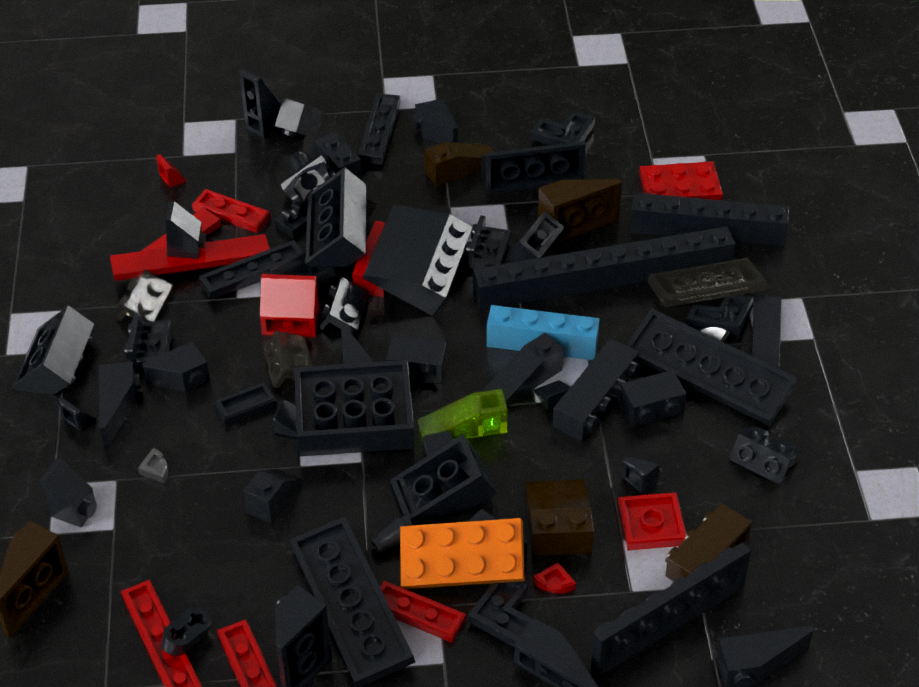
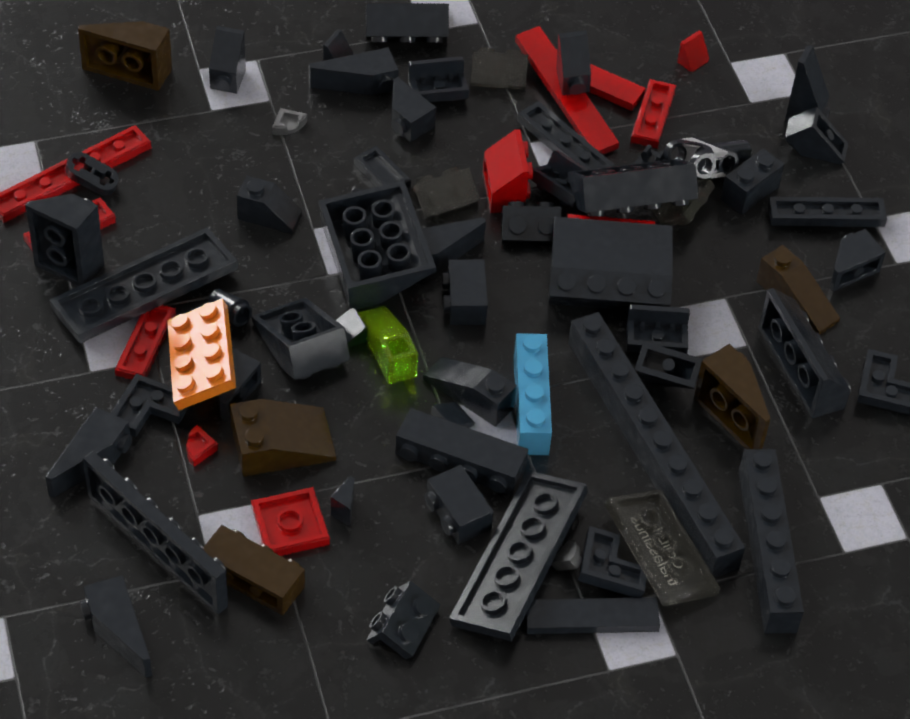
camera: 75 degrees right, 5 degrees up
(682, 180) = (838, 513): red plate -> none

